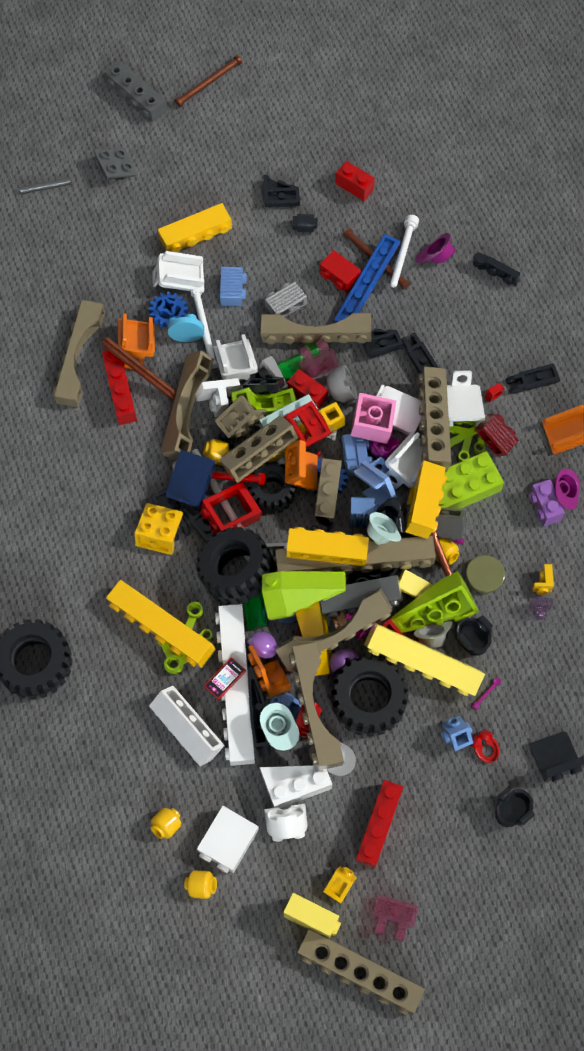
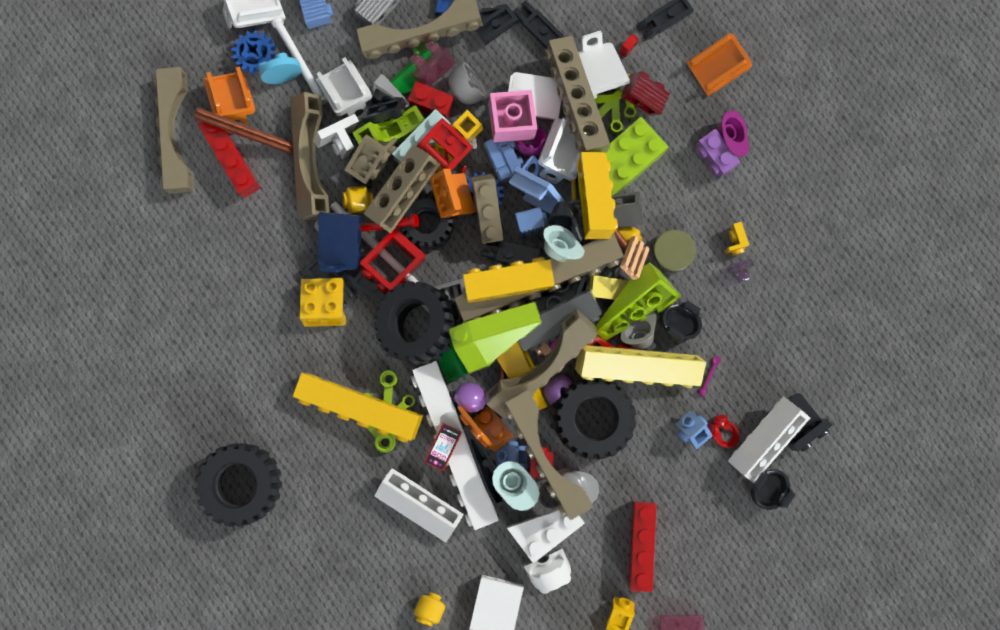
camera: 15 degrees left, 15 degrees up
(452, 559) = (637, 260): none -> light nougat tile
(524, 760) = (768, 439): none -> white brick

